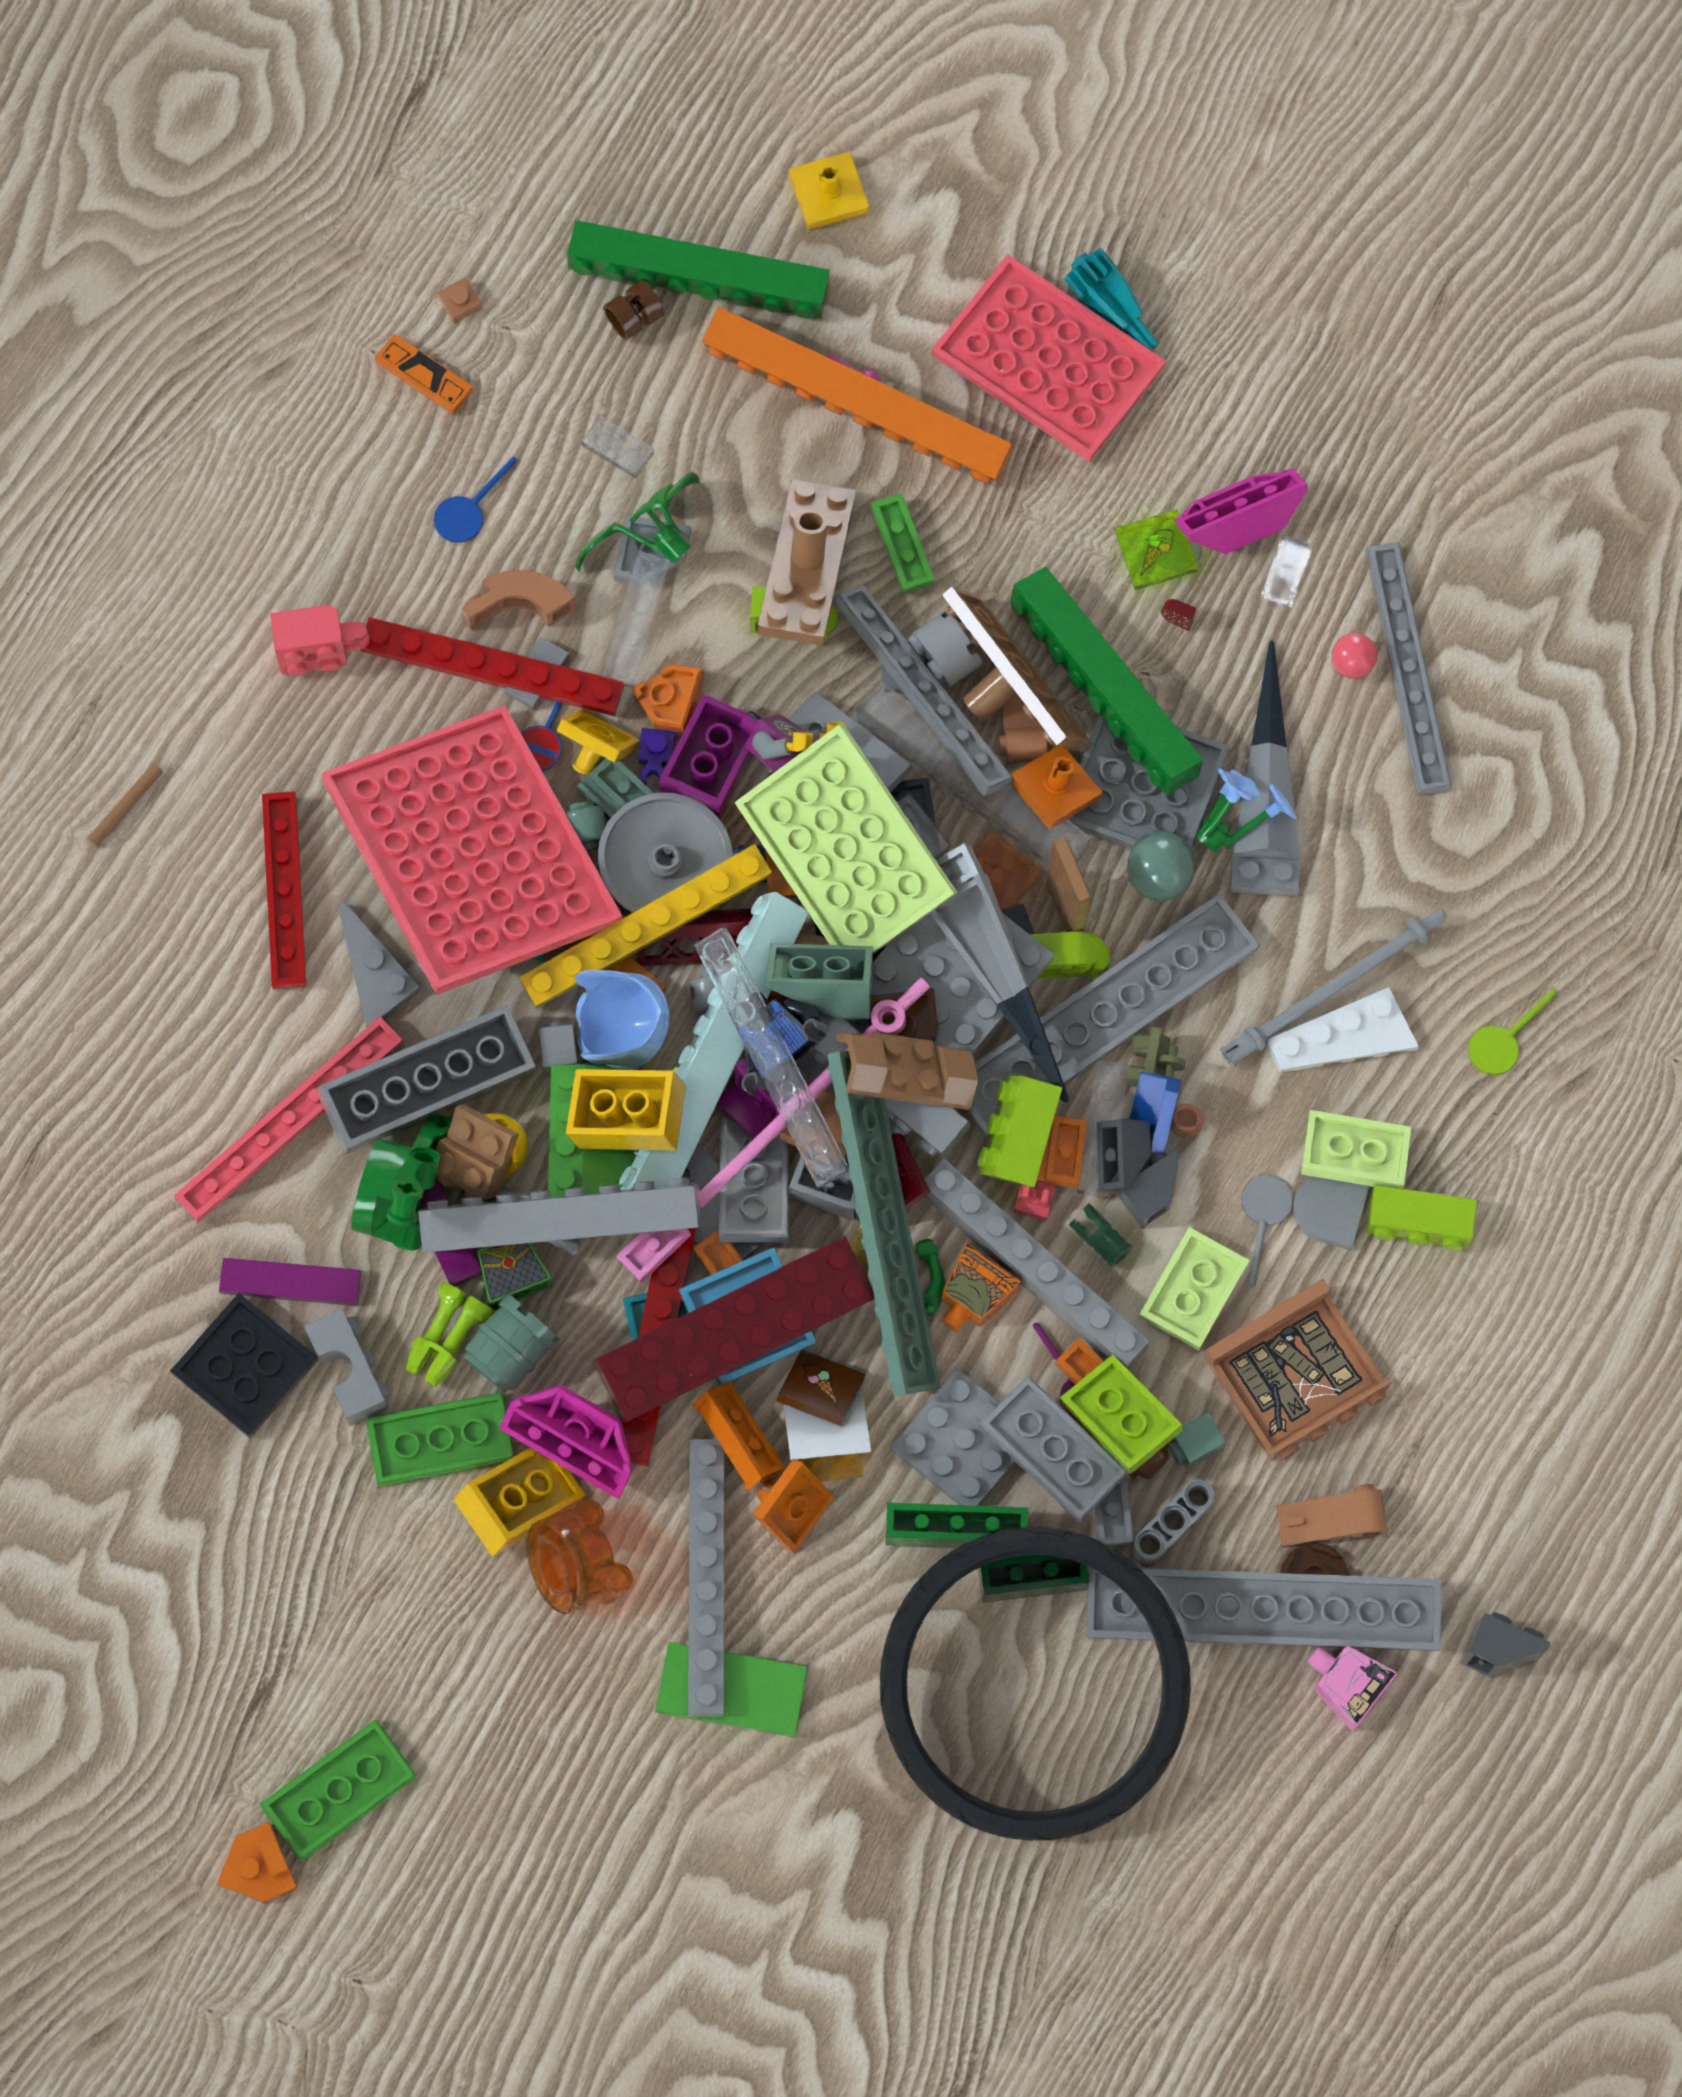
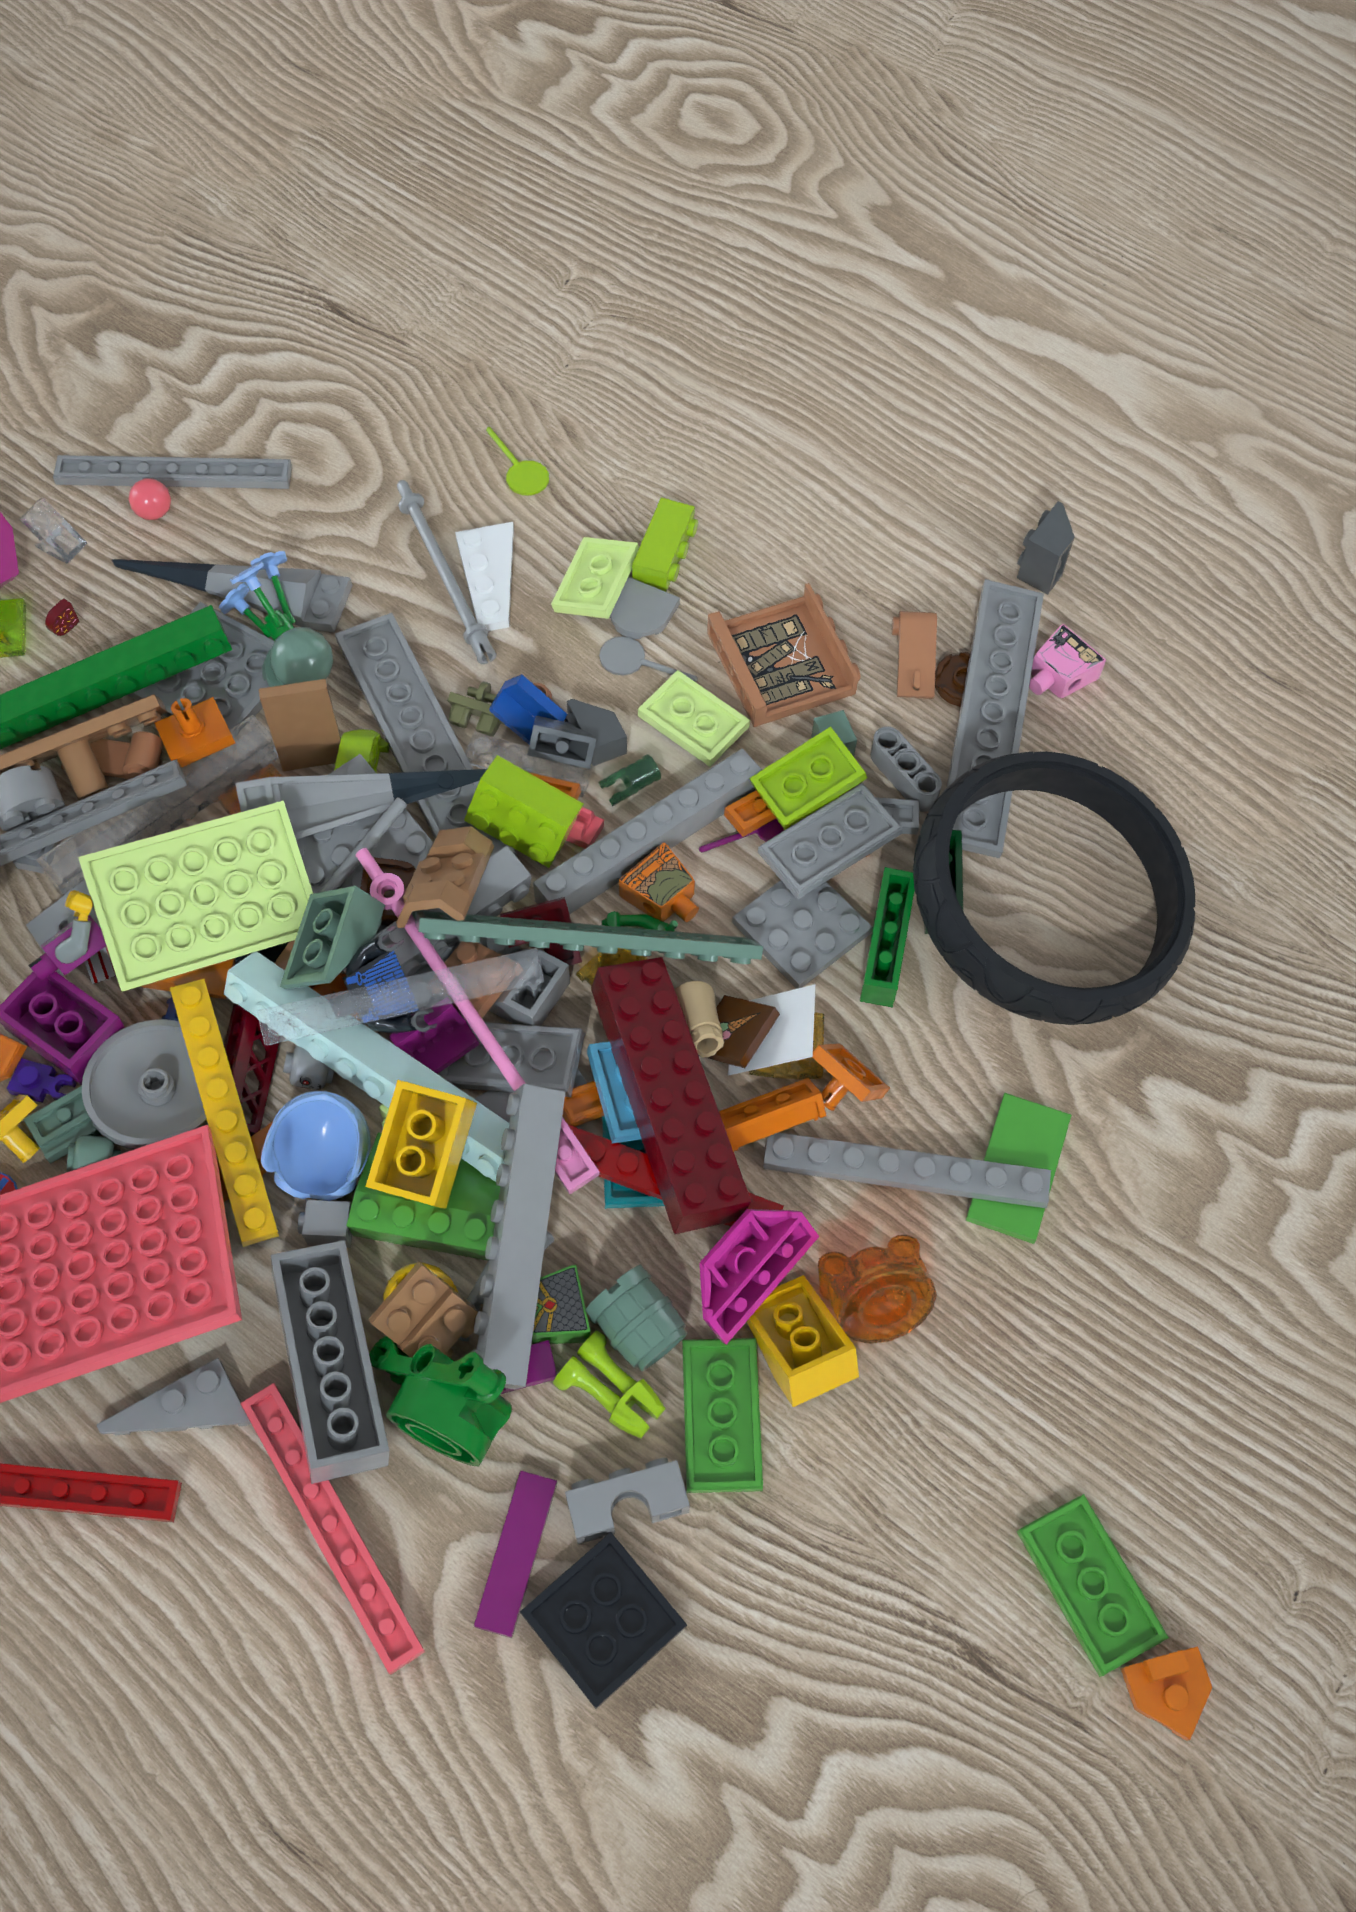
camera: 80 degrees left, 10 degrees down
(825, 1348) = (701, 1016): none -> tan plant
(939, 983) = (368, 842): none -> light grey bar

